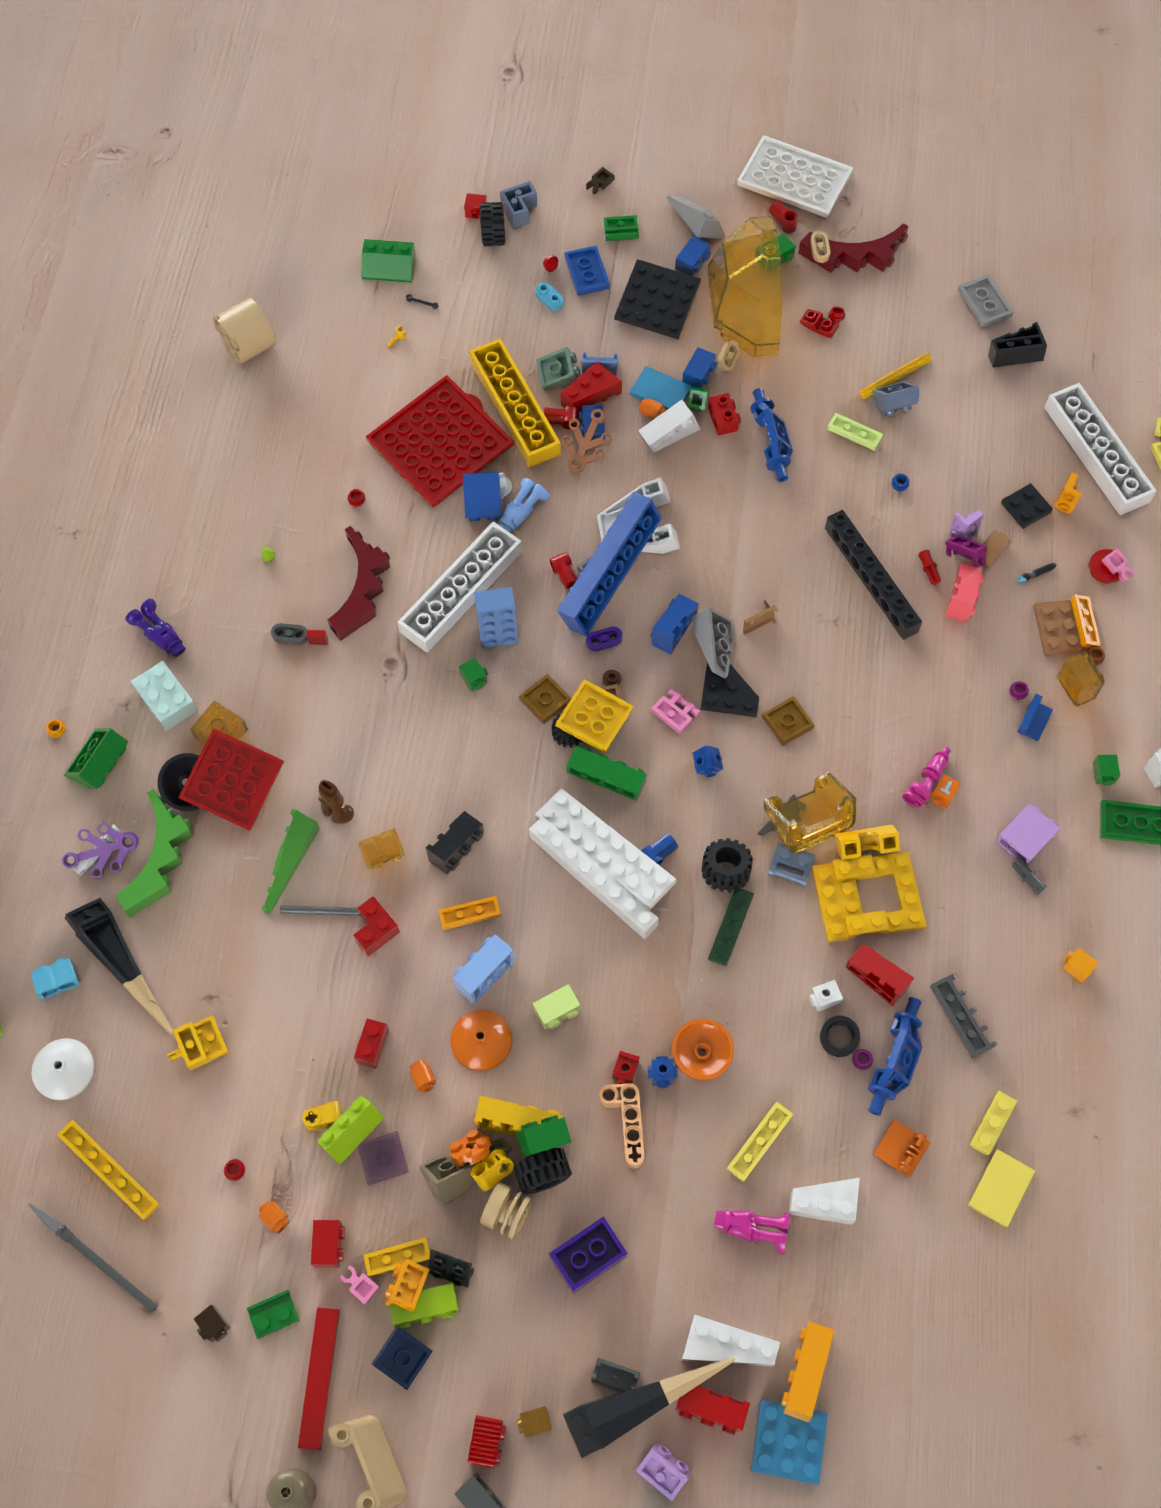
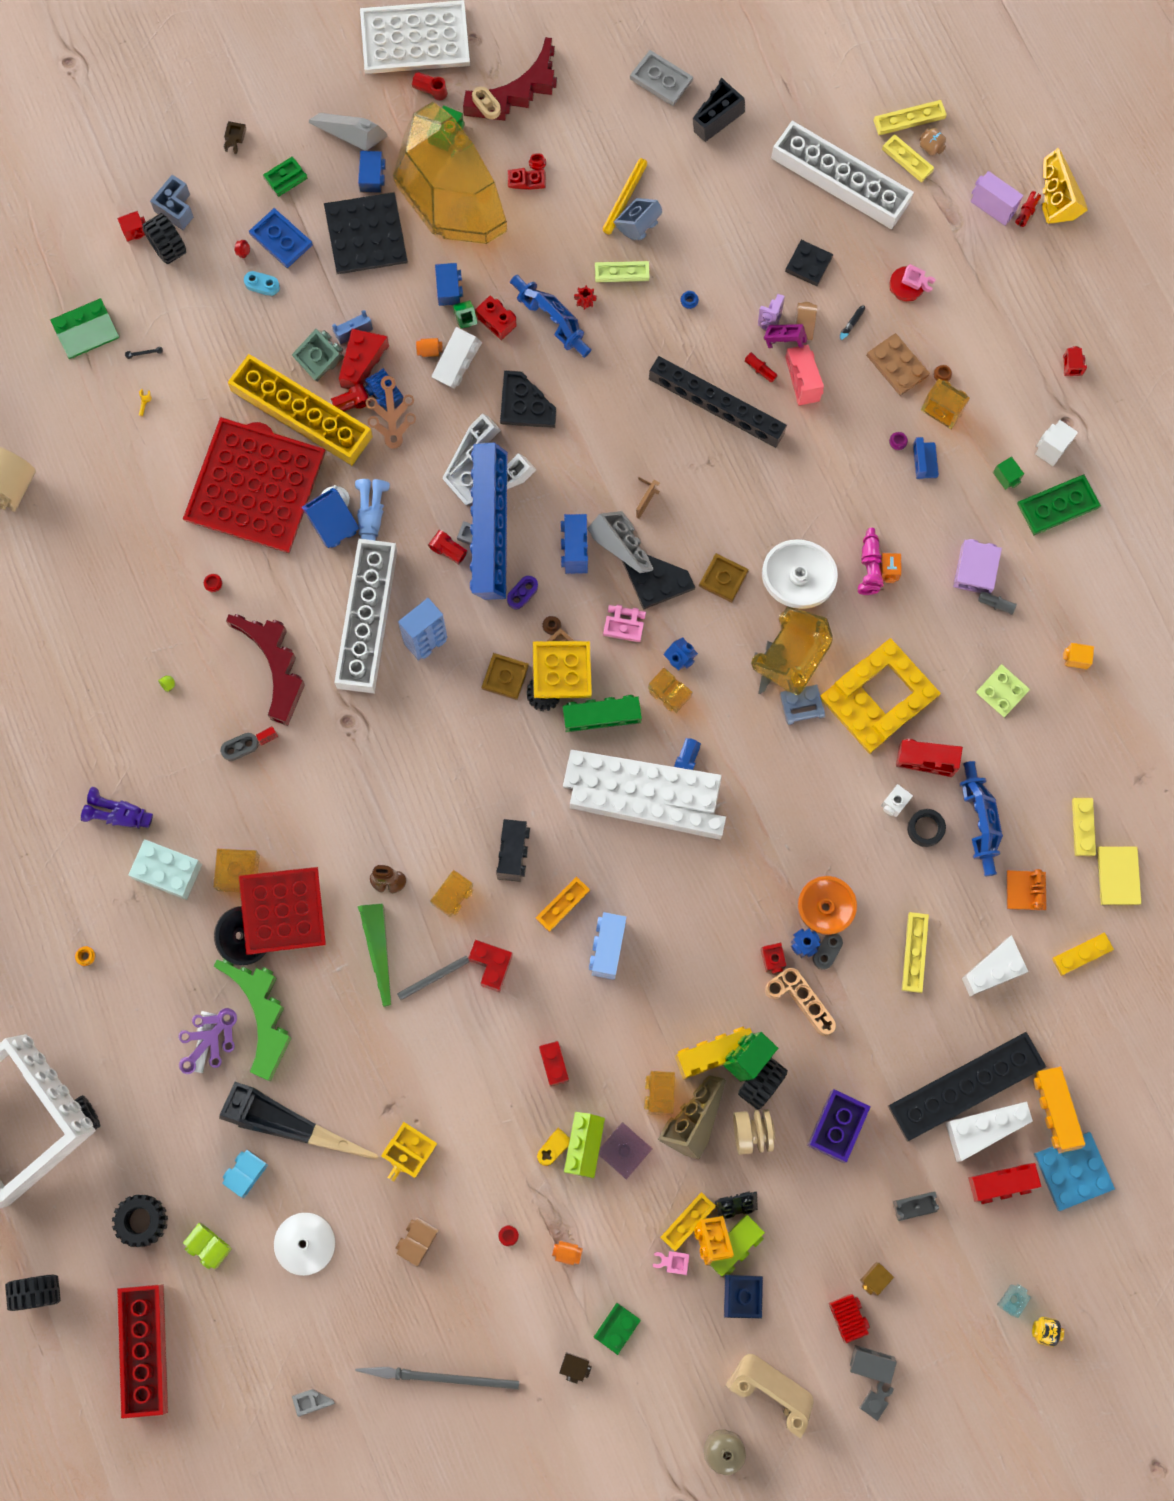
camera: 35 degrees left, 10 degrees up
(96, 758) = (142, 961): green slope -> none
(108, 1170) = (403, 1301): yellow plate -> none
(154, 1125) = (417, 1241): none -> medium nougat brick
(318, 1379) = (686, 1353): red tile -> none
(326, 1243) = (625, 1247): red brick -> none
(422, 1076) = (613, 1064): orange brick -> none
(445, 1124) = (660, 1093): none -> clear yellow brick
(470, 1148) = (685, 1106): orange plate -> none
(473, 674) = (430, 690): green brick -> none
(485, 1052) = (640, 1019): orange dish -> none
(490, 1170) = (721, 1107): yellow piece -> none
(556, 1007) = (687, 941): yellowish green brick -> none
(609, 1418) = (930, 1242): black plate -> none
(660, 388) = (423, 322): dark azure tile -> none
(664, 1471) = (996, 1253): lavender bracket -> none
(679, 787) = (669, 690): none -> clear yellow brick
(680, 1092) = (828, 950): none -> dark grey plate
(704, 492) = (524, 403): none -> black plate
(728, 356) = (465, 256): tan plate -> none
(728, 852) = (752, 723): black tyre -> none
(730, 927) = (784, 786): clear green plate -> none
(733, 1294) = (966, 1086): none -> black plate
(744, 1225) = (943, 1027): dark pink piece -> none
(810, 435) = (585, 292): none -> red gear
(857, 751) = (799, 574): none -> white dish
(862, 1059) = (954, 836): magenta plate -> none
(881, 838) = (863, 639): yellow arch -> none
(921, 1240) = (1082, 954): none -> yellow plate
(961, 1016) = (1011, 754): dark grey hinge -> none
(987, 955) = (1002, 690): none -> yellowish green hinge
(1069, 495) = (839, 235): light orange bracket -> none
(1085, 621) = (918, 346): light orange plate -> none

